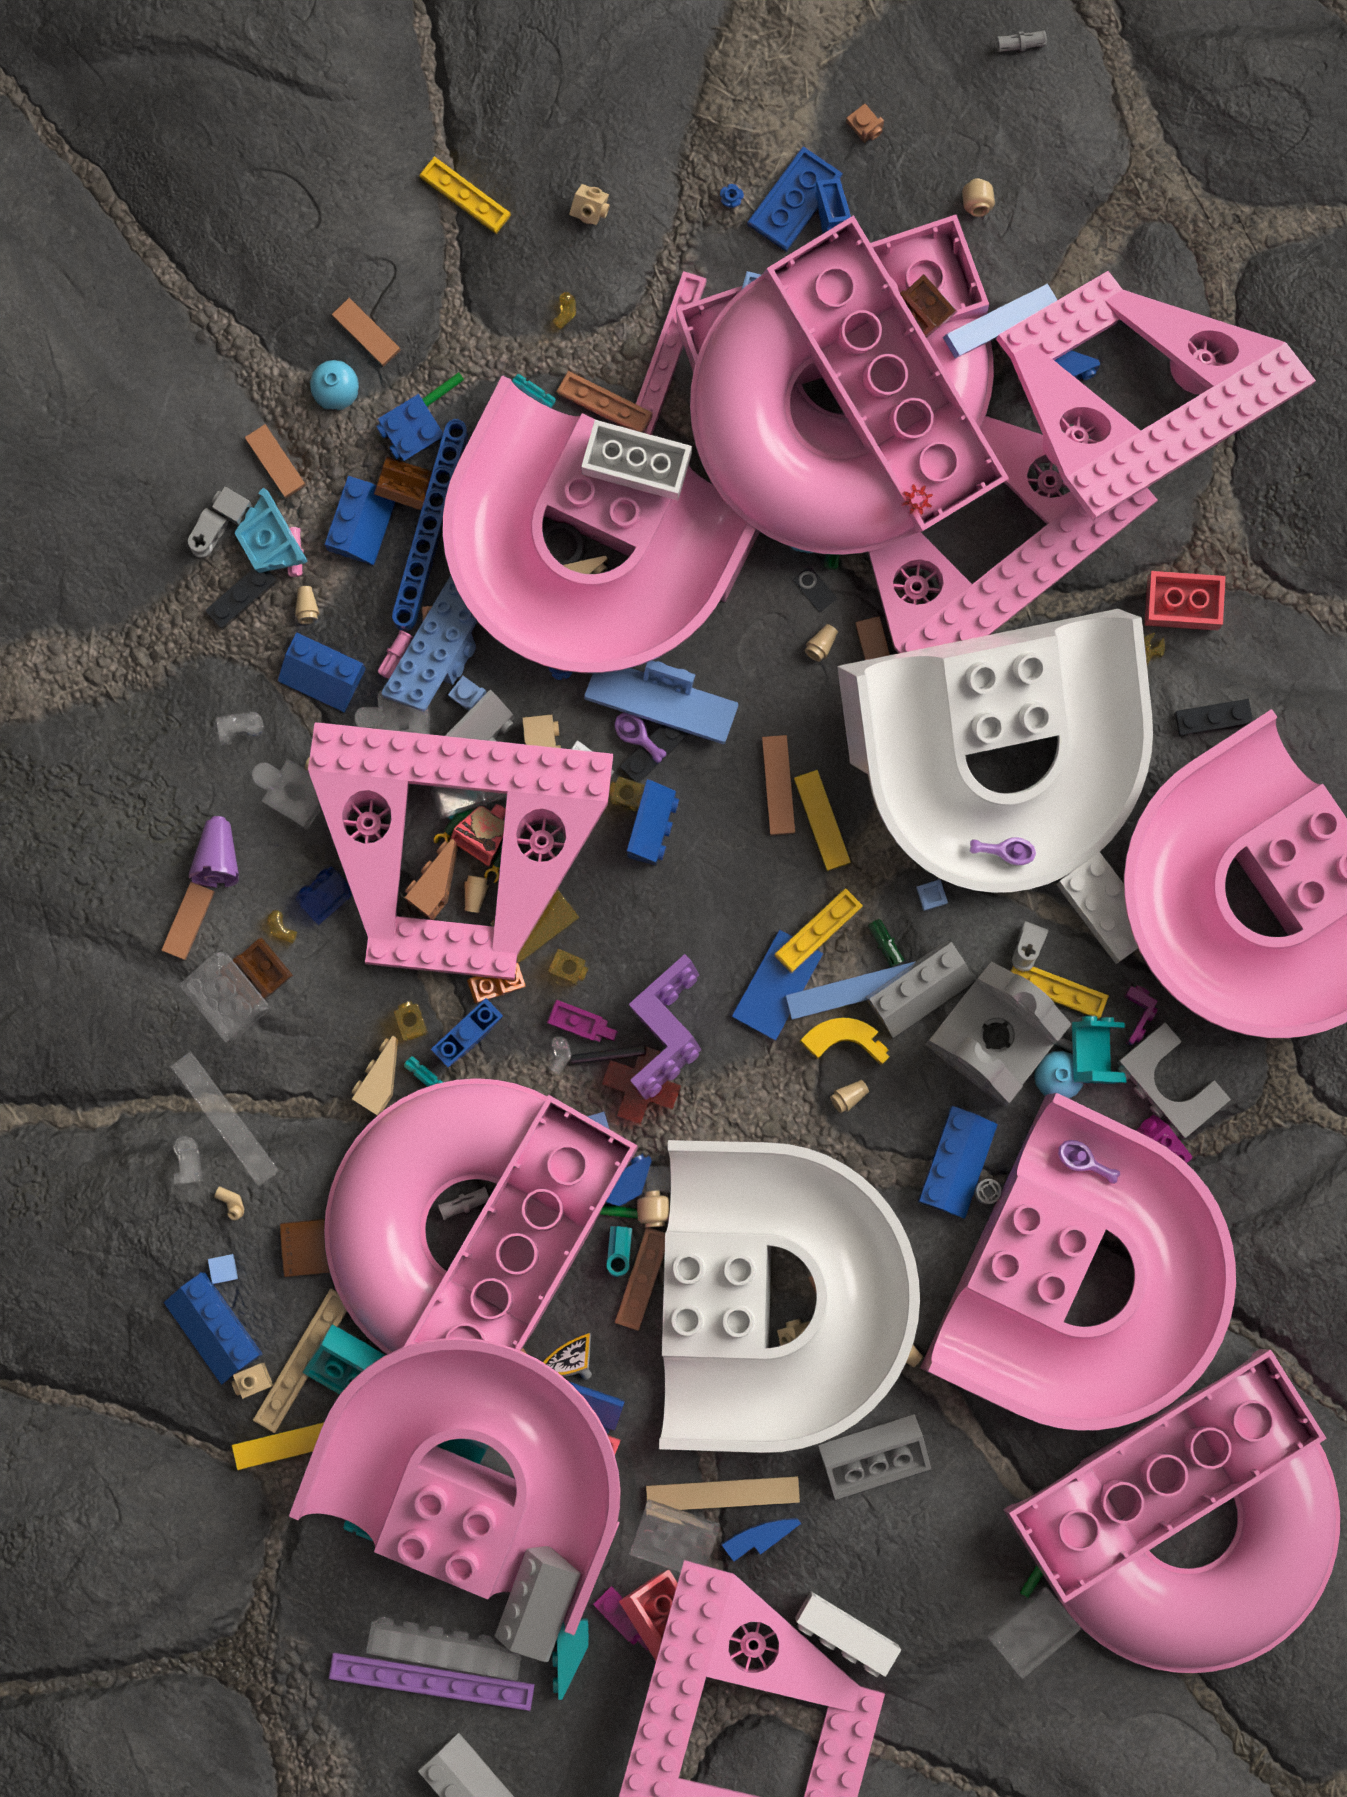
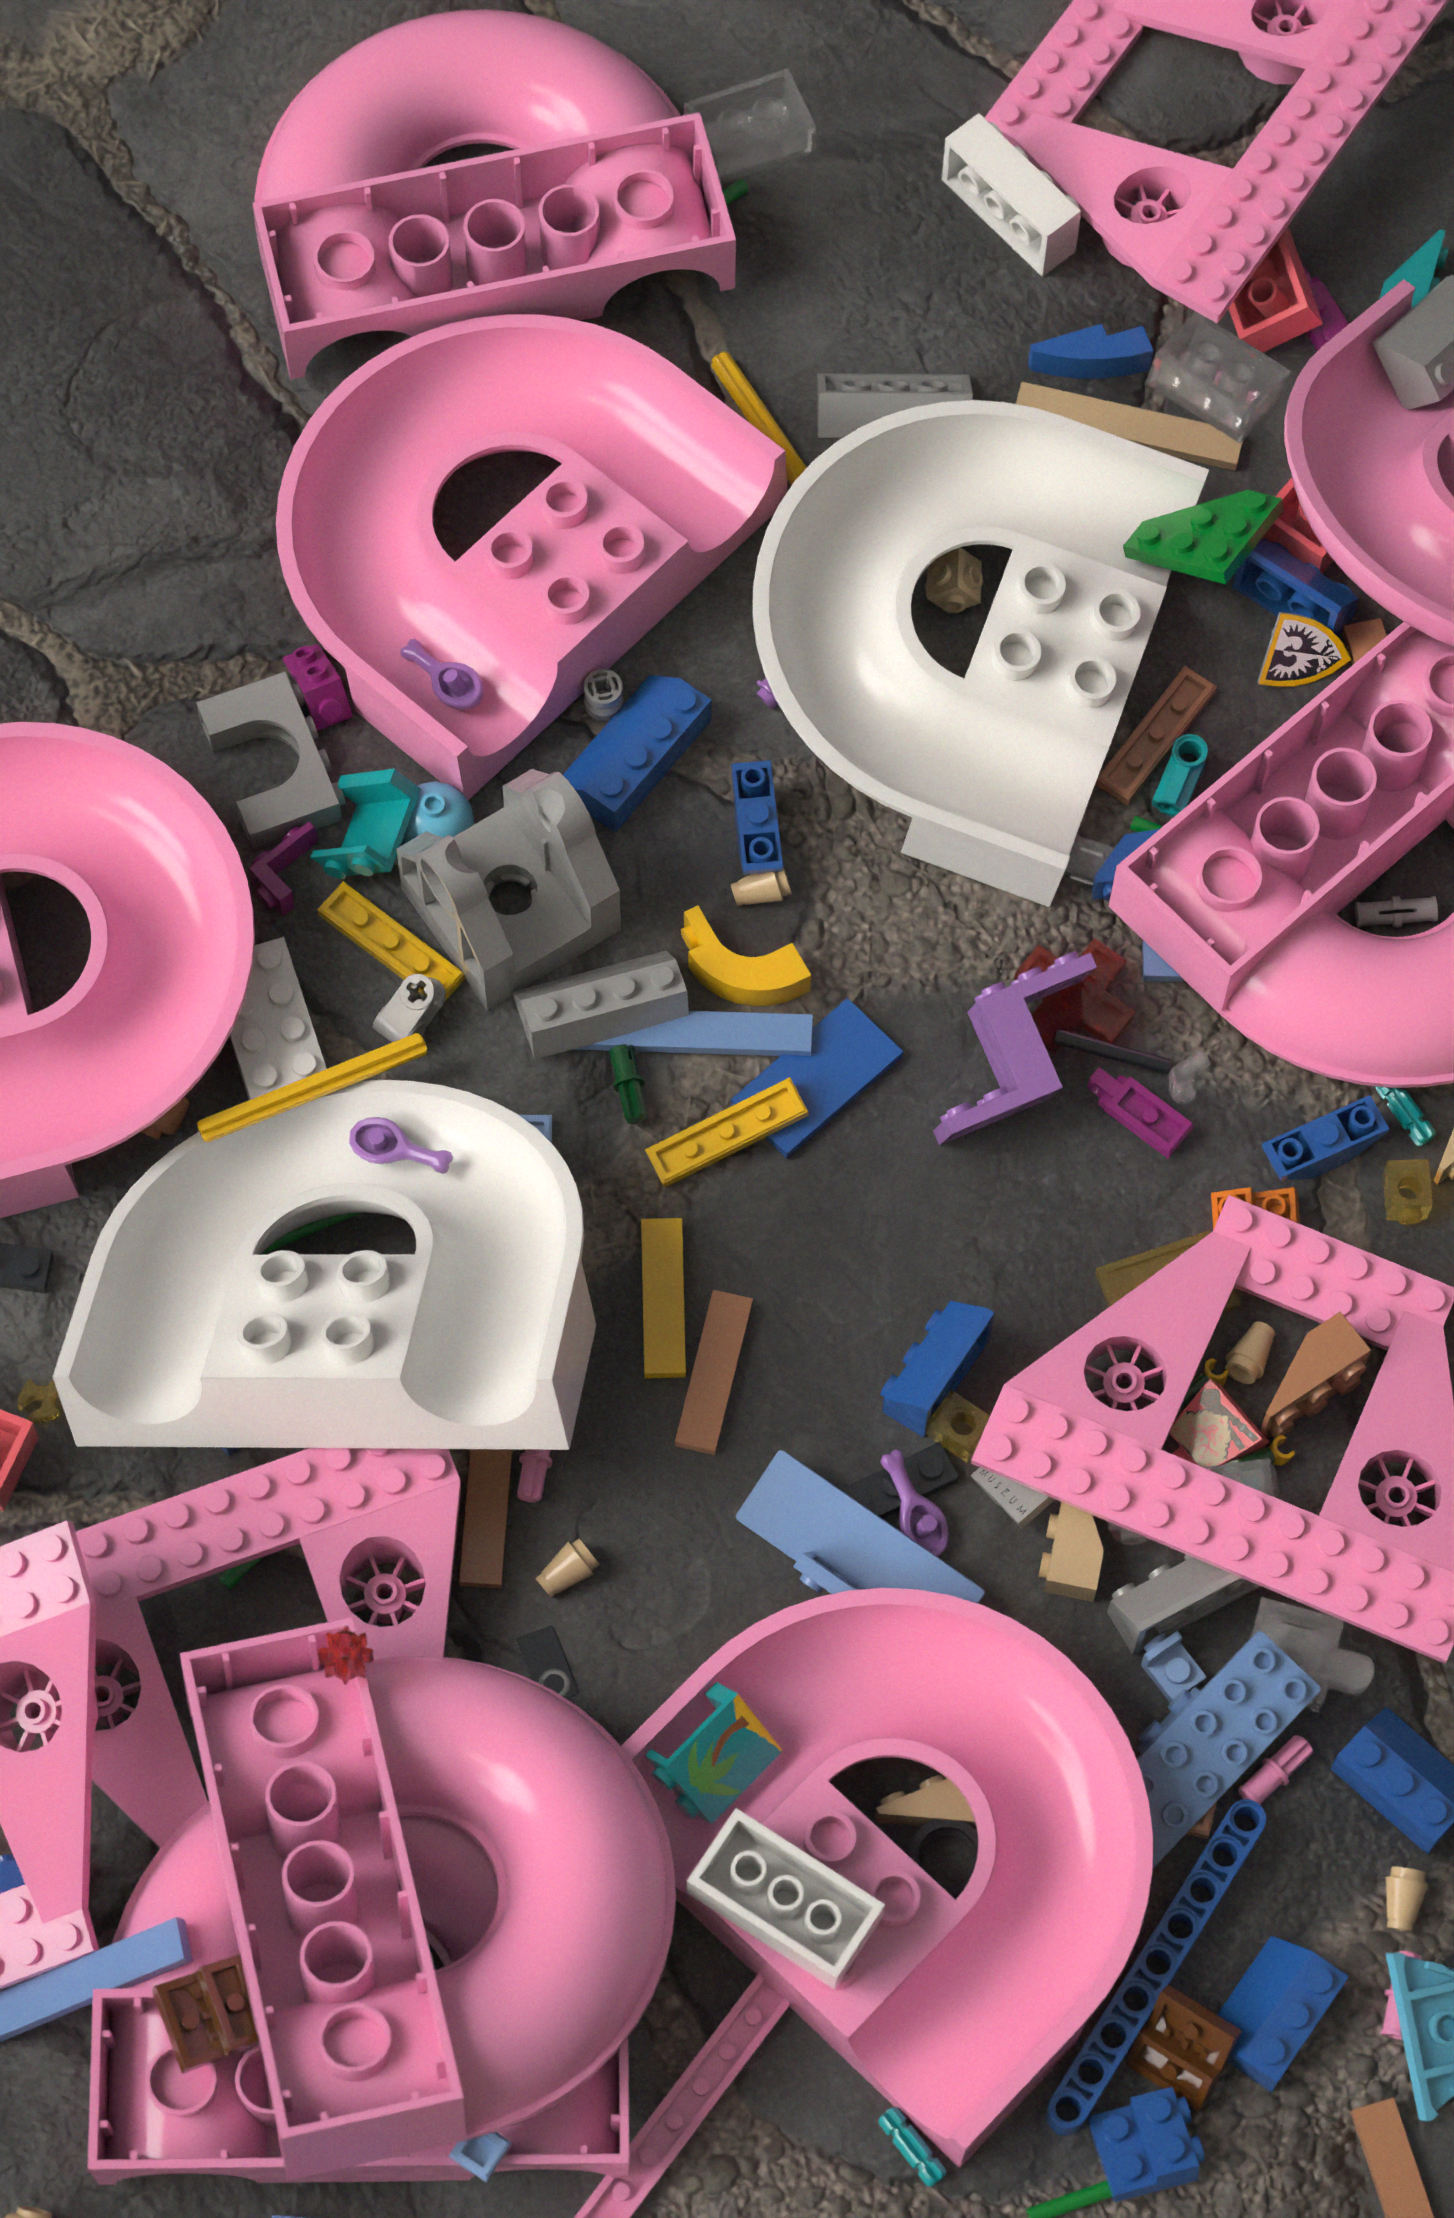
camera: 165 degrees left, 15 degrees down
(560, 959) = (1136, 1212): clear yellow brick -> none
(604, 403) = (796, 2083): nougat tile -> none
(647, 1407) = (1208, 537): none -> green plate
(653, 1209) = (1111, 813): tan head -> none
(699, 545) = (717, 1758): none -> teal panel
(865, 1132) = (756, 817): none -> blue slope
(949, 1415) = (755, 410): none -> yellow axle
(1066, 869) = (312, 1087): none -> yellow axle

